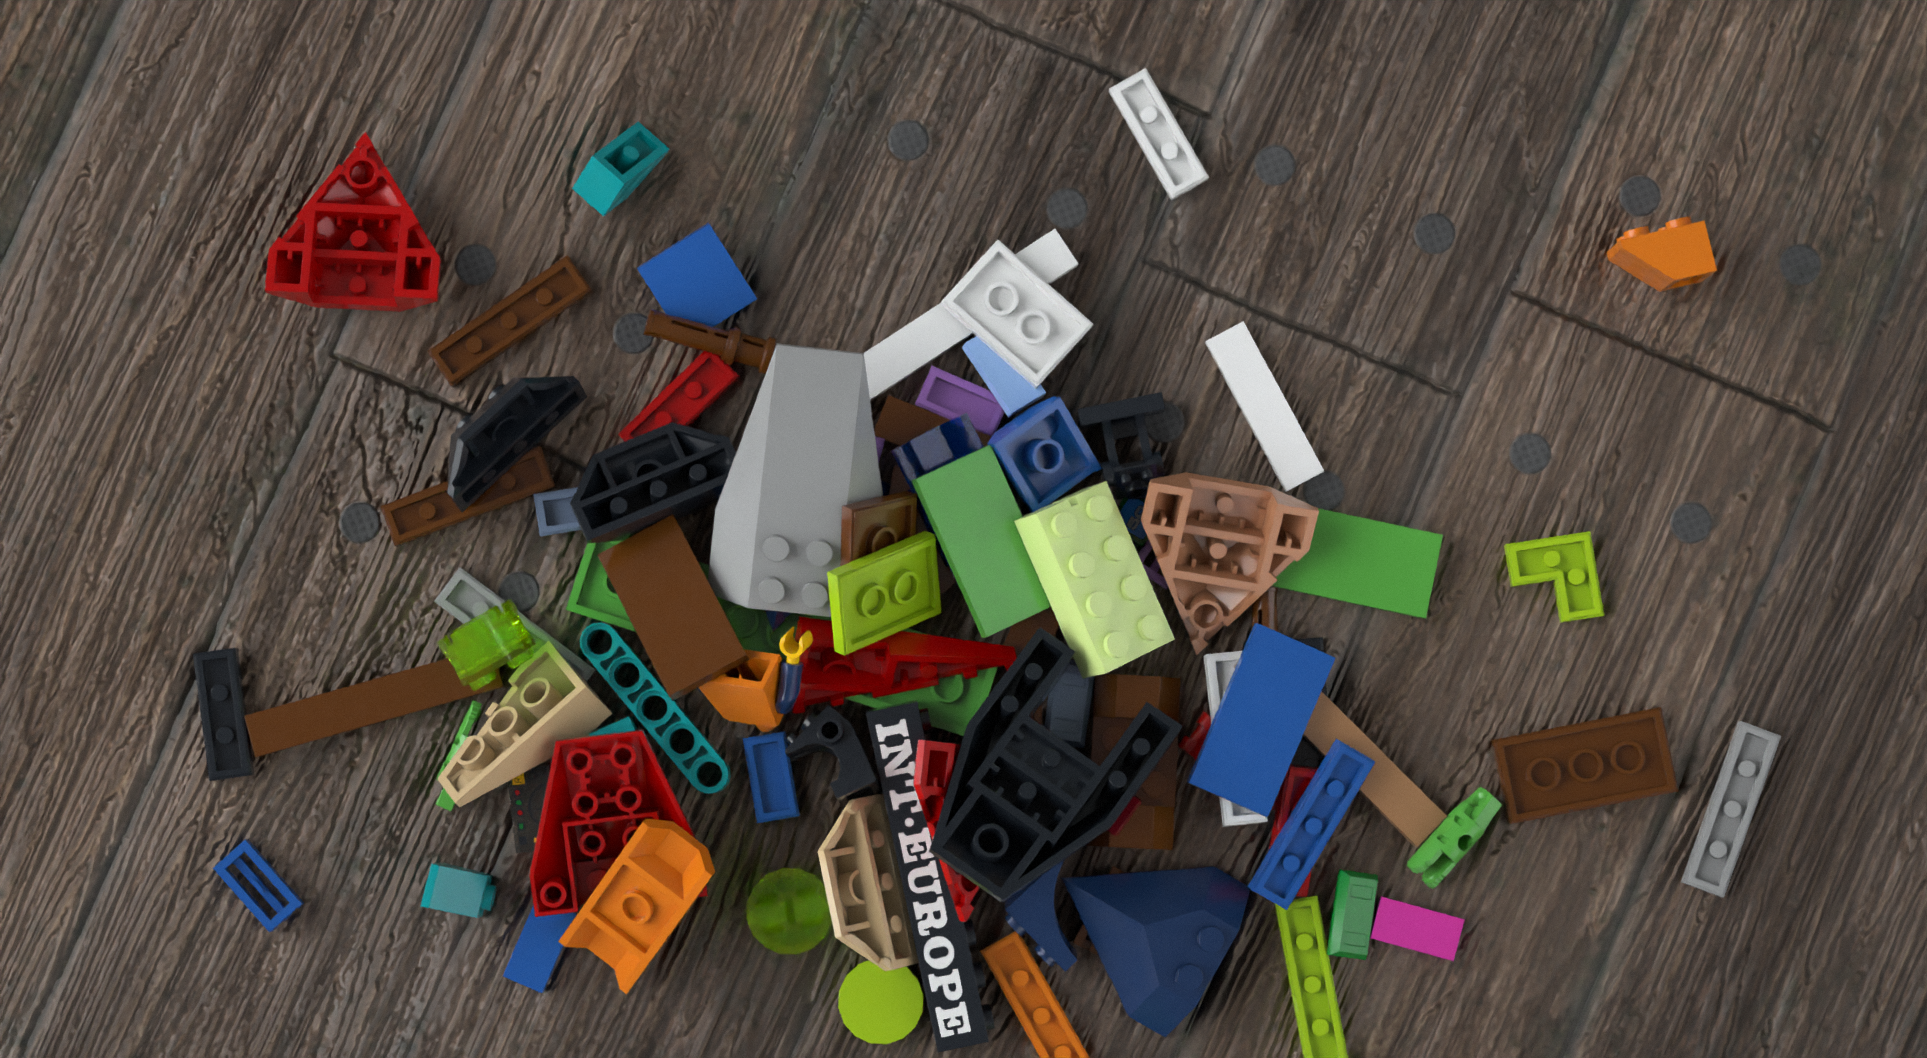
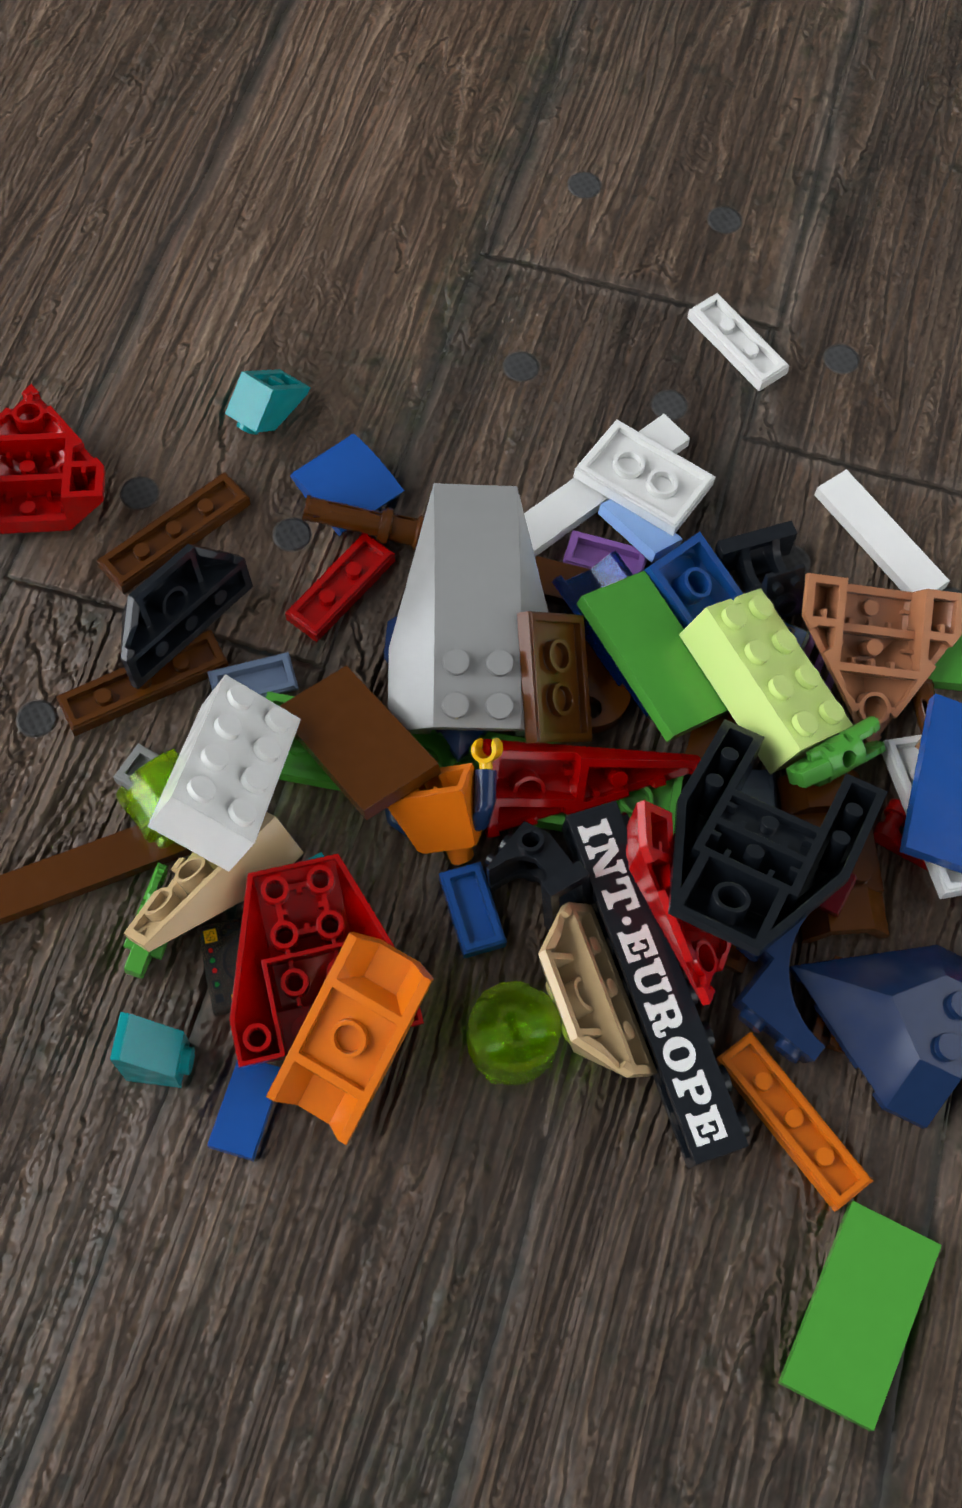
camera: 15 degrees left, 20 degrees down
(542, 641) = (225, 774): none -> white brick
(636, 698) = (365, 863): teal beam -> none
(650, 479) = (323, 637): black wedge -> none
(880, 1003) = (620, 1124): lime tile -> none
(884, 592) = (565, 703): lime tile -> none
(1150, 672) = (837, 755): none -> bright green hinge

